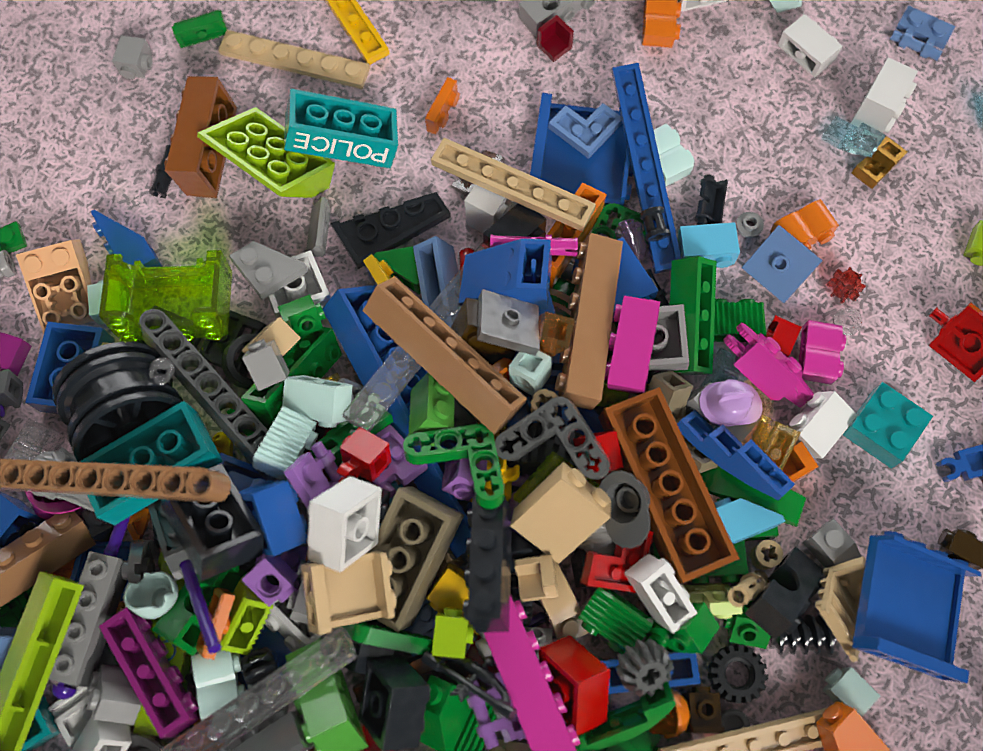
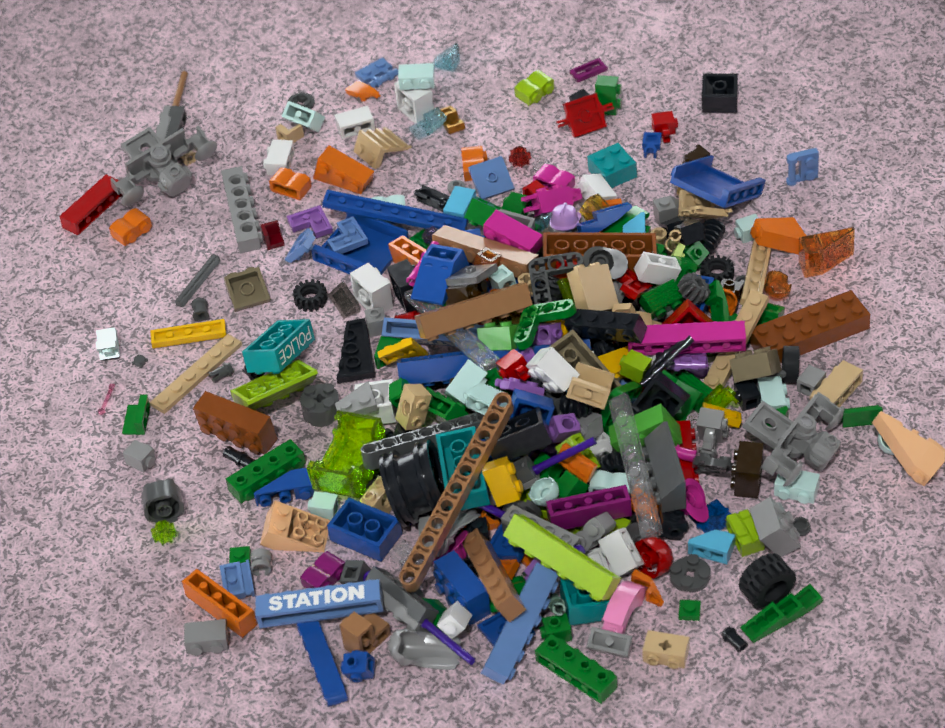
camera: 65 degrees left, 25 degrees down
(19, 136) = (163, 532): none -> clear neon green gear
(55, 112) = (162, 501): none -> dark grey brick
(138, 530) = (502, 481): none -> yellow brick
(146, 207) = (265, 470): none -> green brick
(161, 363) = (408, 444): clear pin -> none
(265, 364) = (433, 393): light grey brick -> none
(275, 222) = (319, 404): none -> dark grey brick
(300, 83) = (221, 372): none -> dark grey pin
(319, 228) = (342, 386): light grey slope -> none
(397, 15) = (200, 312): none -> dark grey bush
(438, 113) = (283, 302): orange plate -> none
(447, 226) = (374, 321): none -> light grey brick
(449, 49) = (246, 288): none -> dark tan plate
(470, 115) = (308, 288): none -> black tyre
(513, 184) = (376, 264): tan plate -> none
(543, 80) = (302, 245): none -> medium blue plate
(600, 62) = (313, 218): none -> medium lavender plate
(649, 215) = (436, 217): black bush -> none
(705, 70) = (342, 171): none -> orange wedge
(770, 87) = (373, 145): none -> tan plate
(876, 29) = (362, 90): none -> orange slope
(908, 78) = (416, 76): none -> light aqua brick

